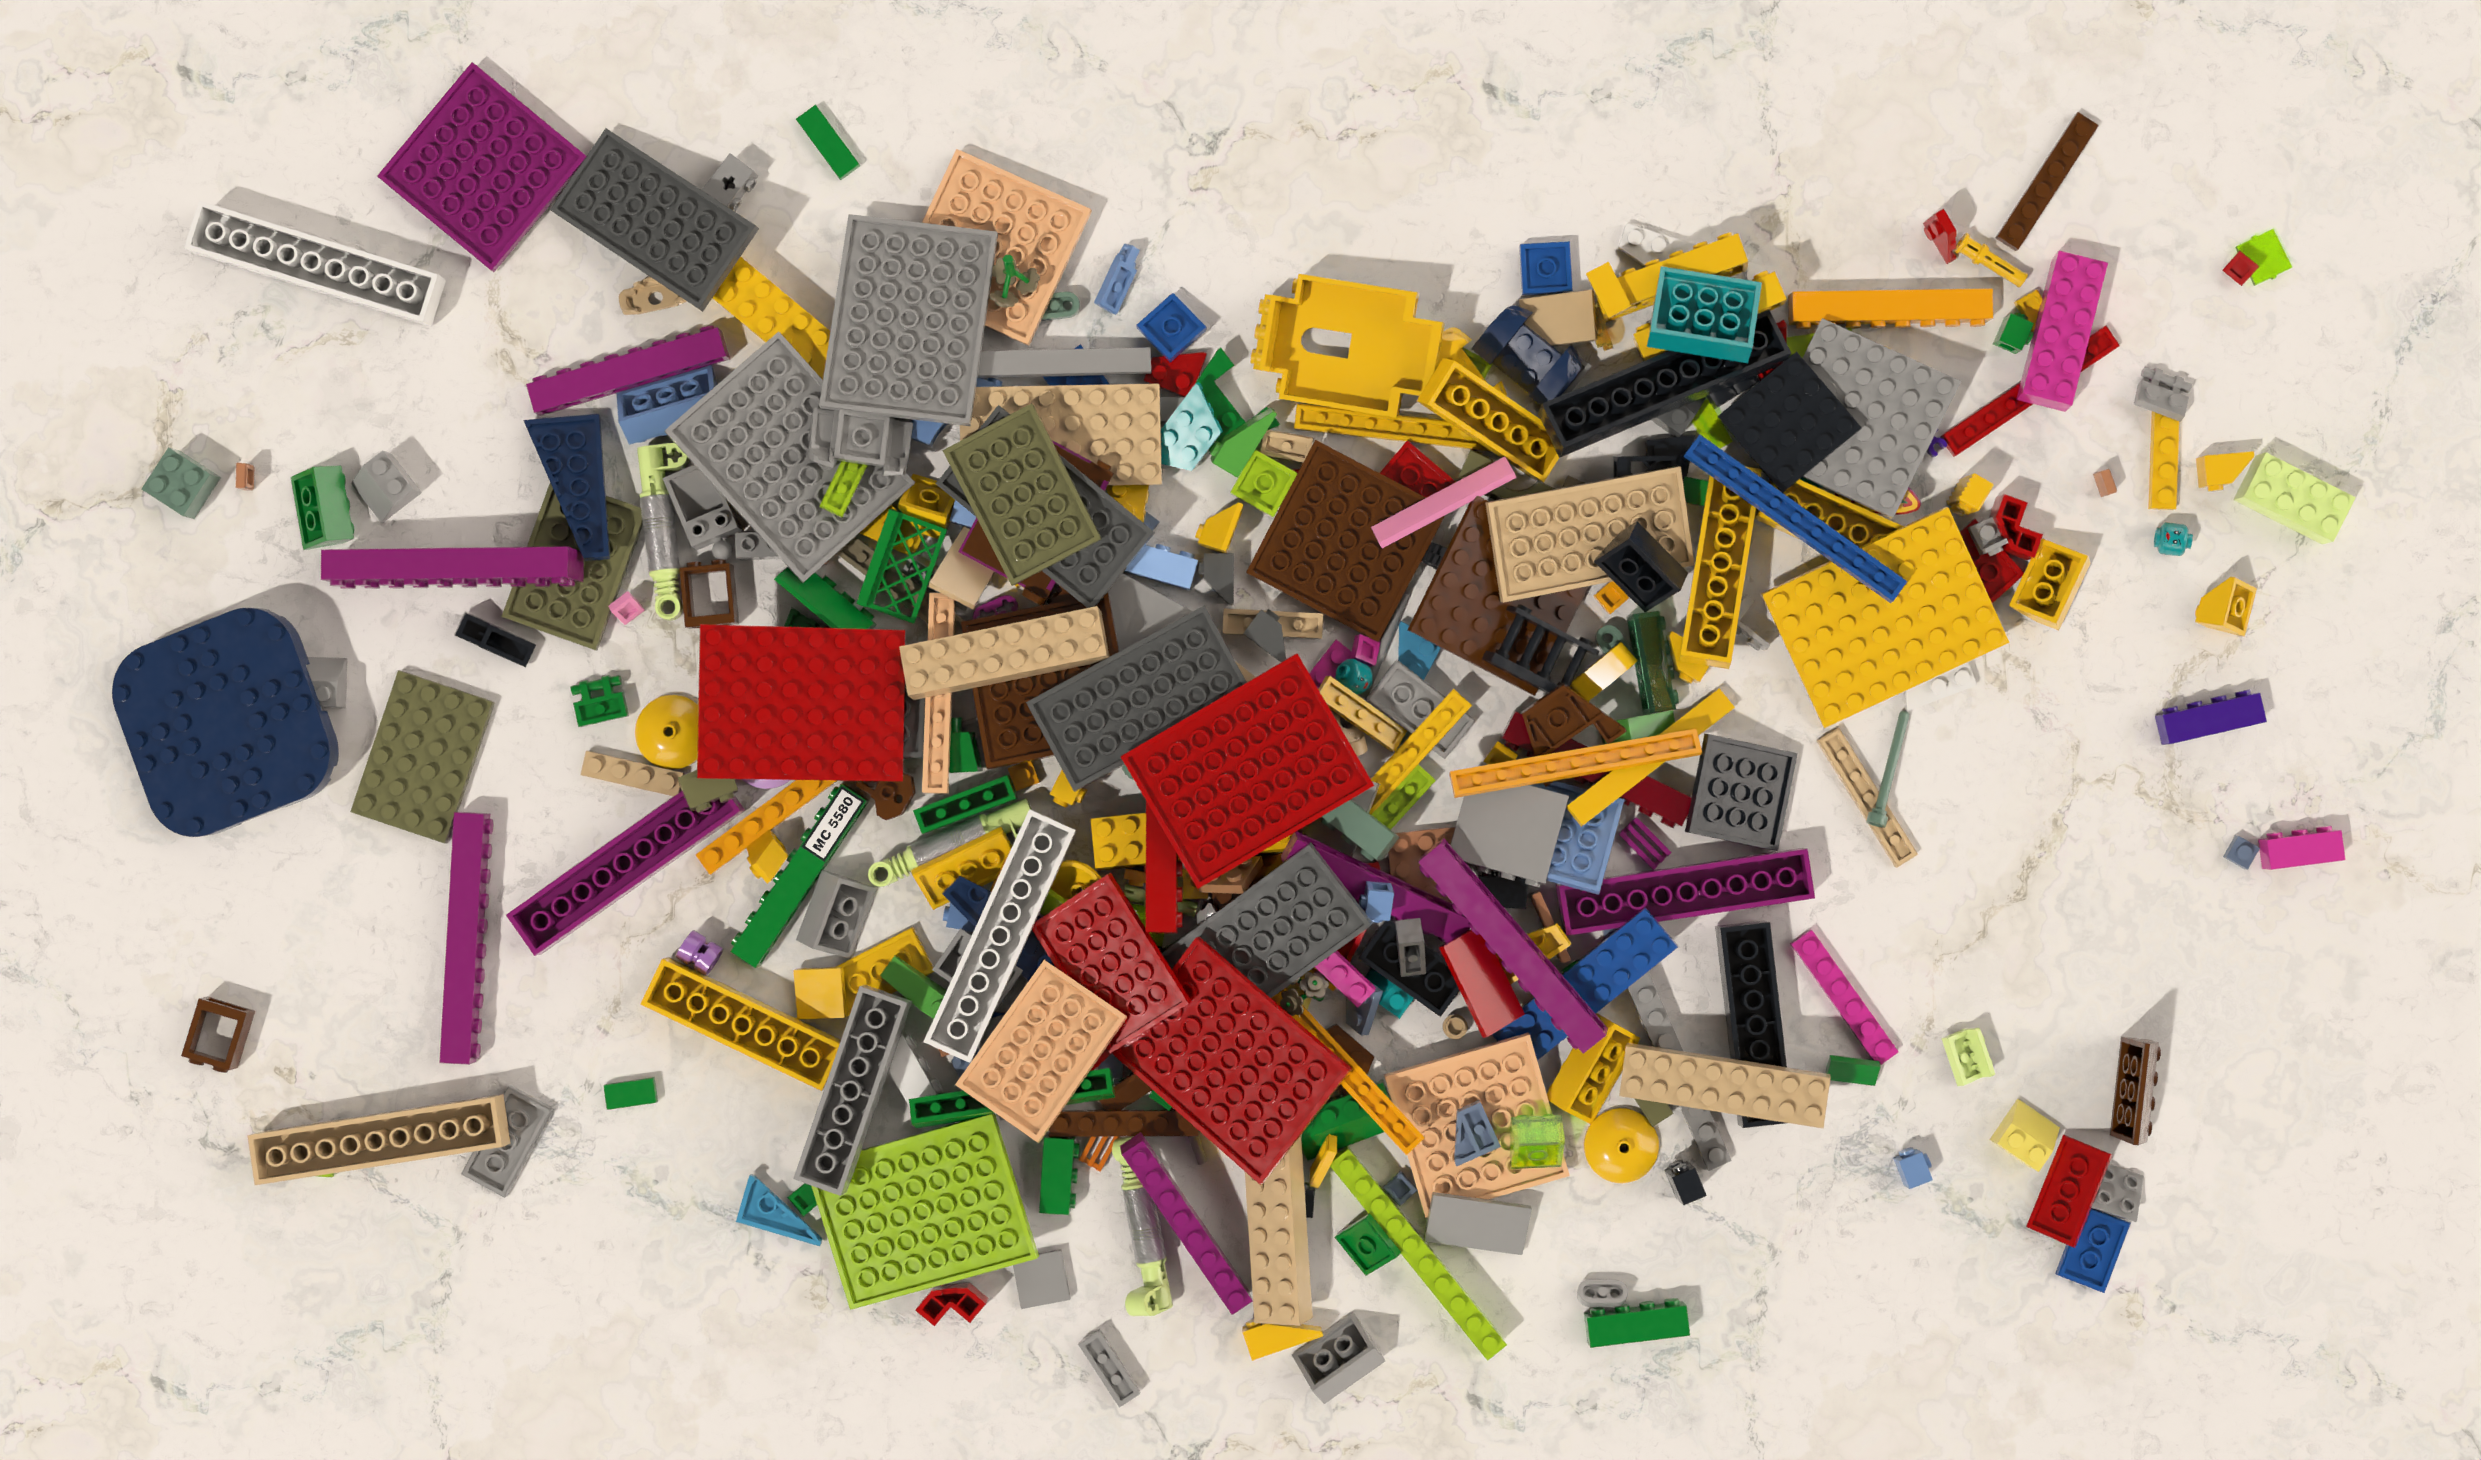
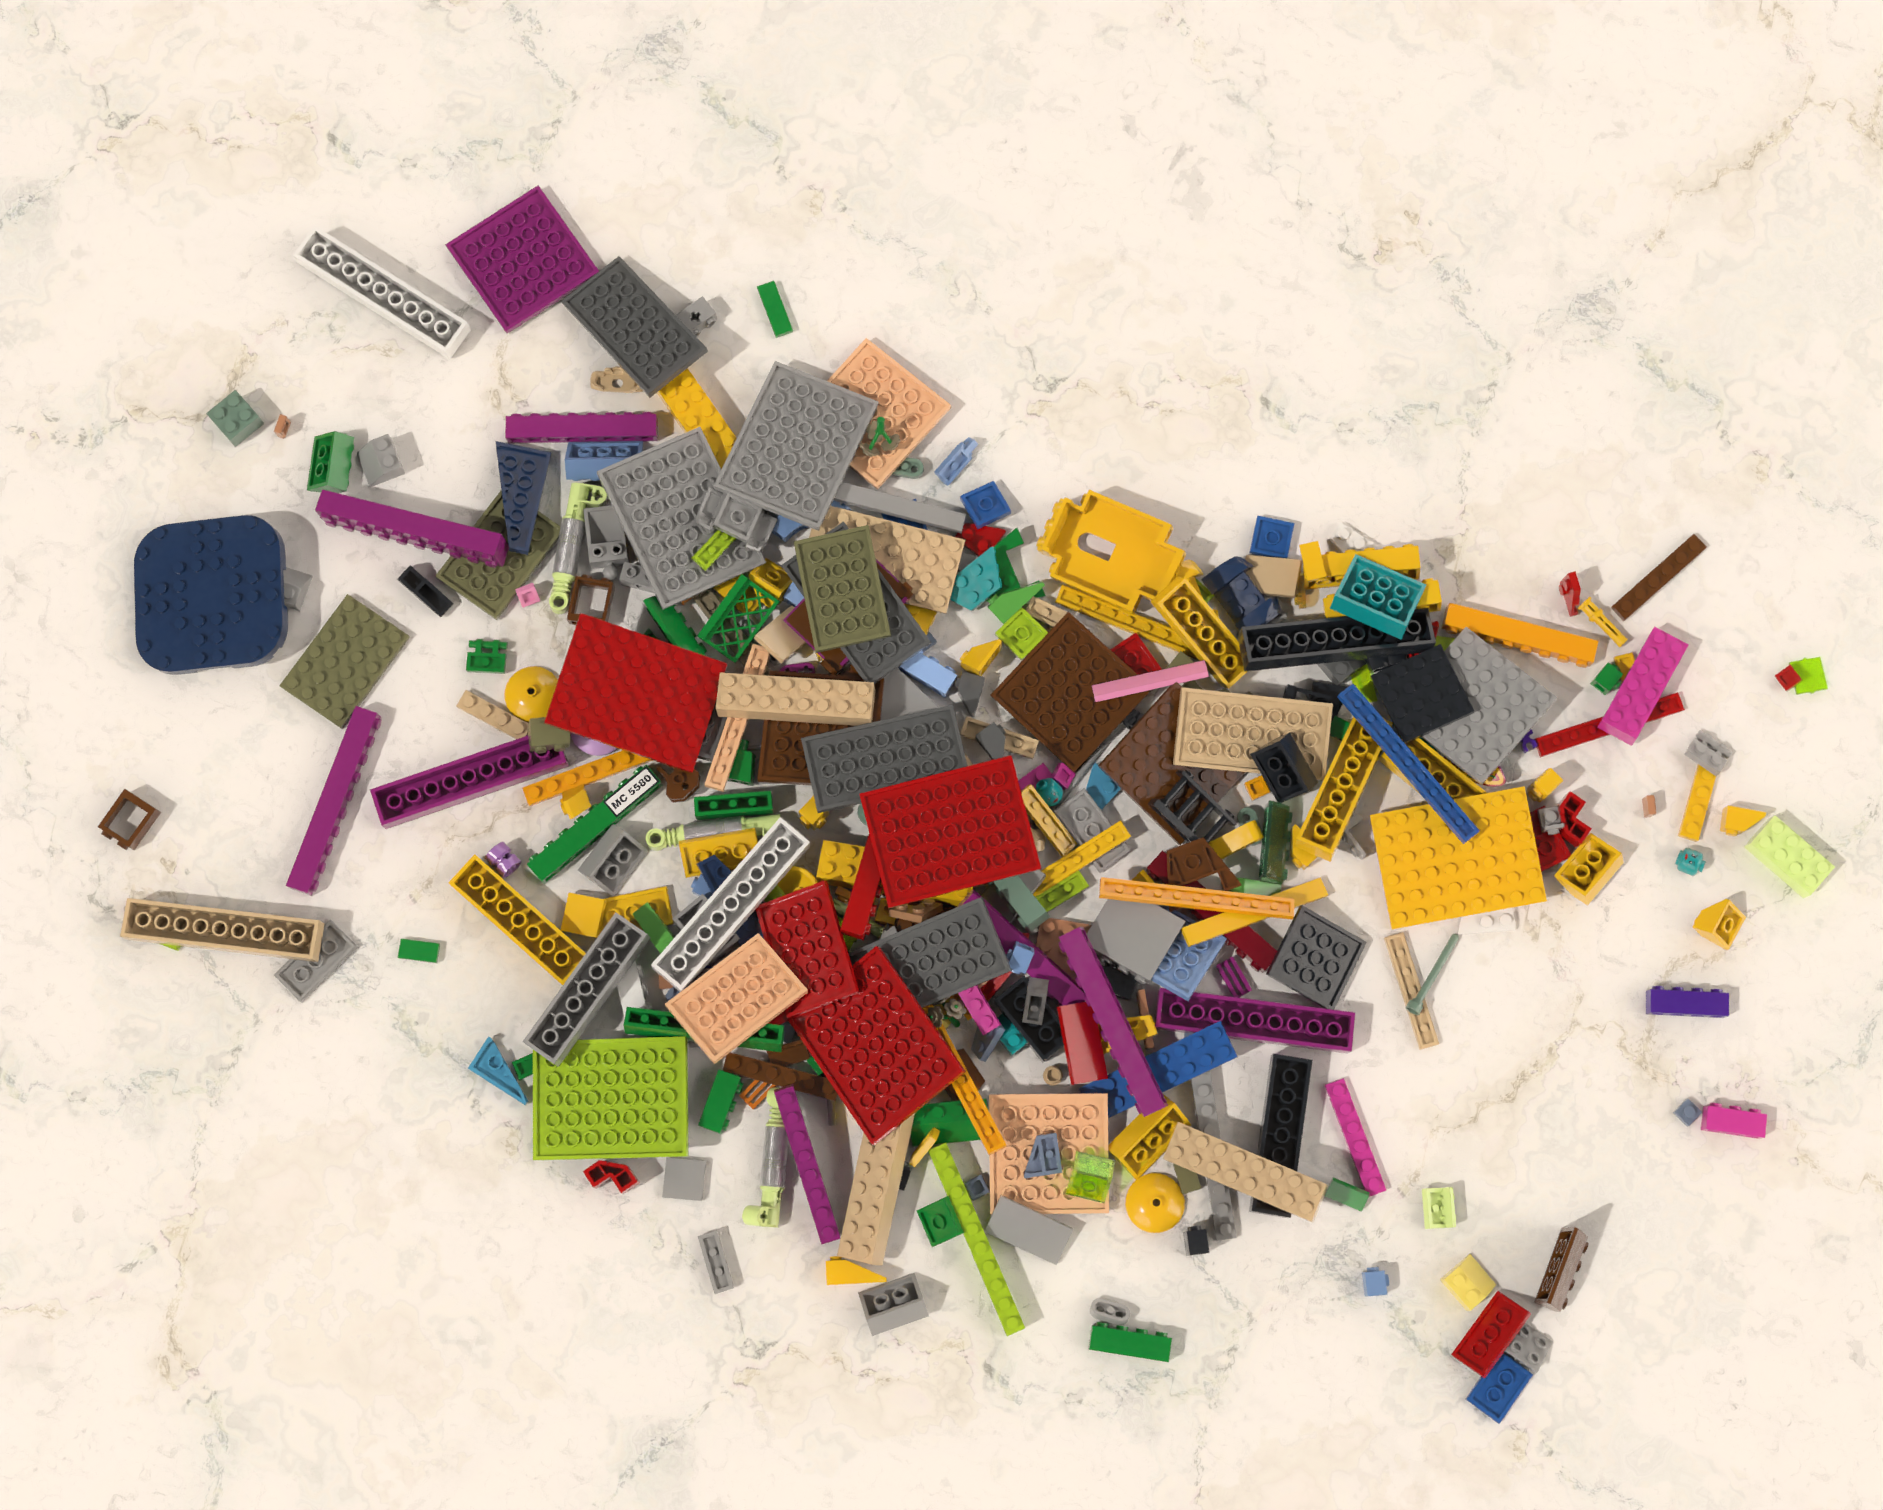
camera: 15 degrees right, 10 degrees down
(1023, 775) = (782, 797): light orange plate -> none

